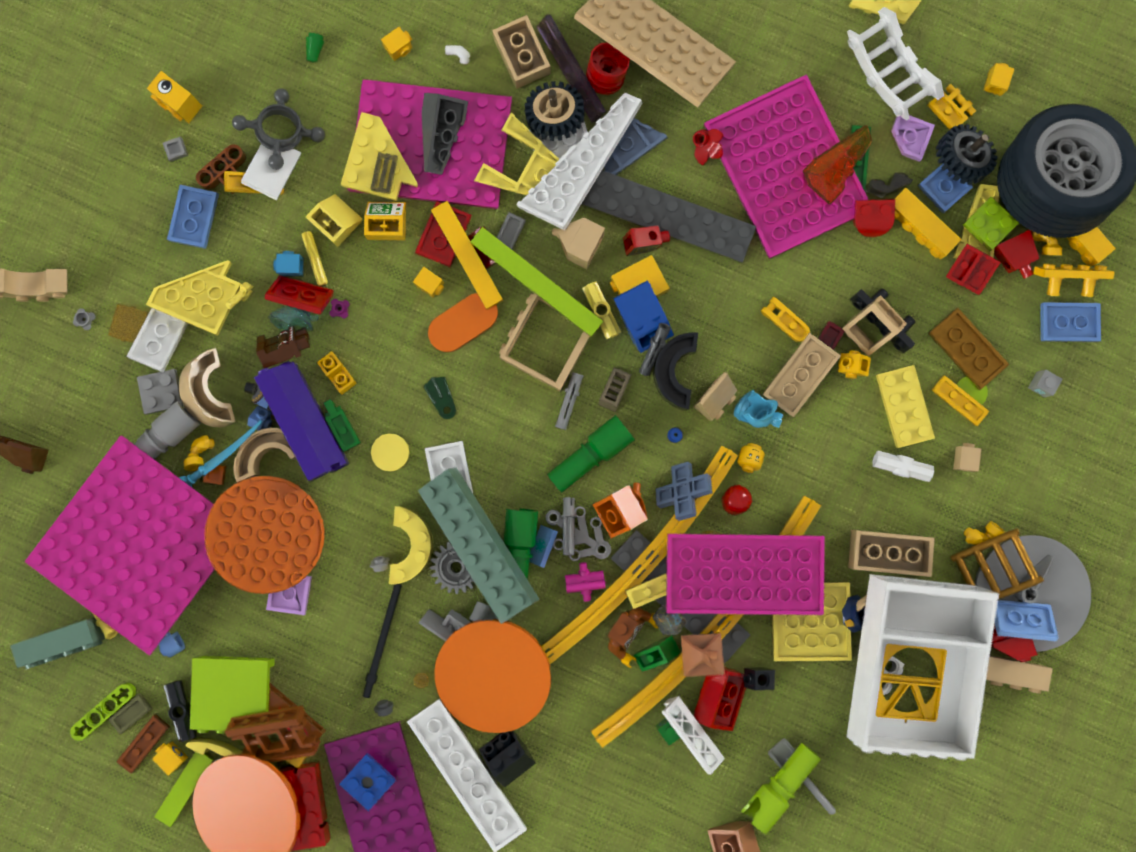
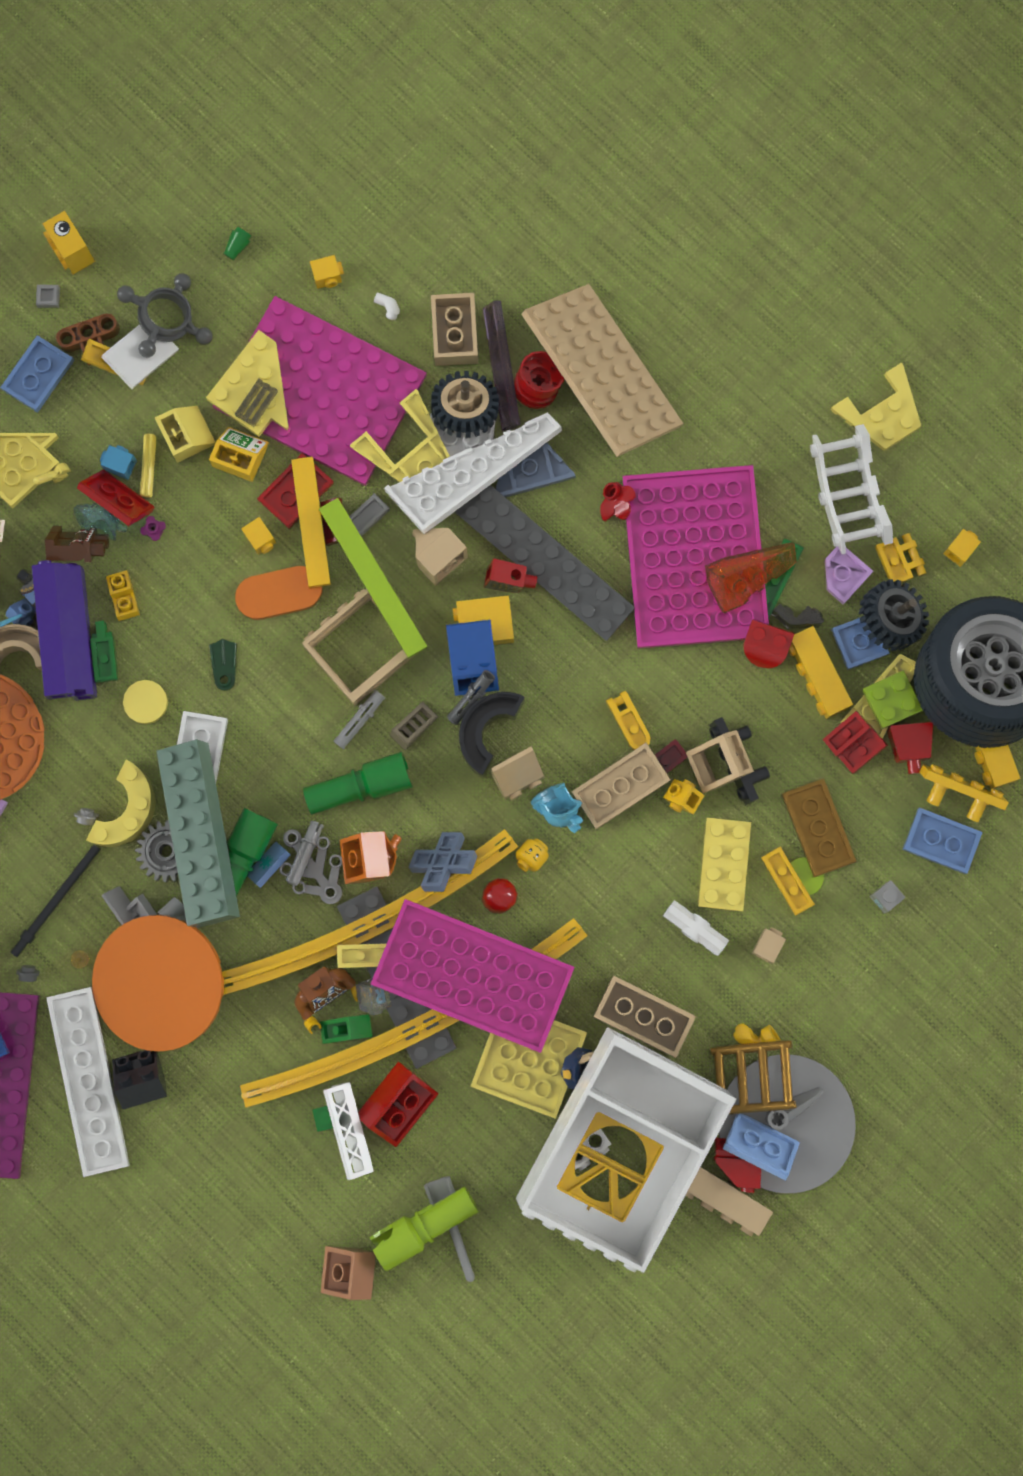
camera: 25 degrees right, 5 degrees down
(440, 126) = (335, 377): dark grey wedge -> none
(585, 581) = (298, 920): dark pink pin -> none
(596, 299) = (432, 622): light yellow piece -> none
(672, 438) = (460, 804): blue piece -> none
(702, 654) = (391, 1044): nougat piece -> none
(759, 678) = (453, 1102): black brick -> none
(1052, 246) = (952, 750): yellow arm -> none

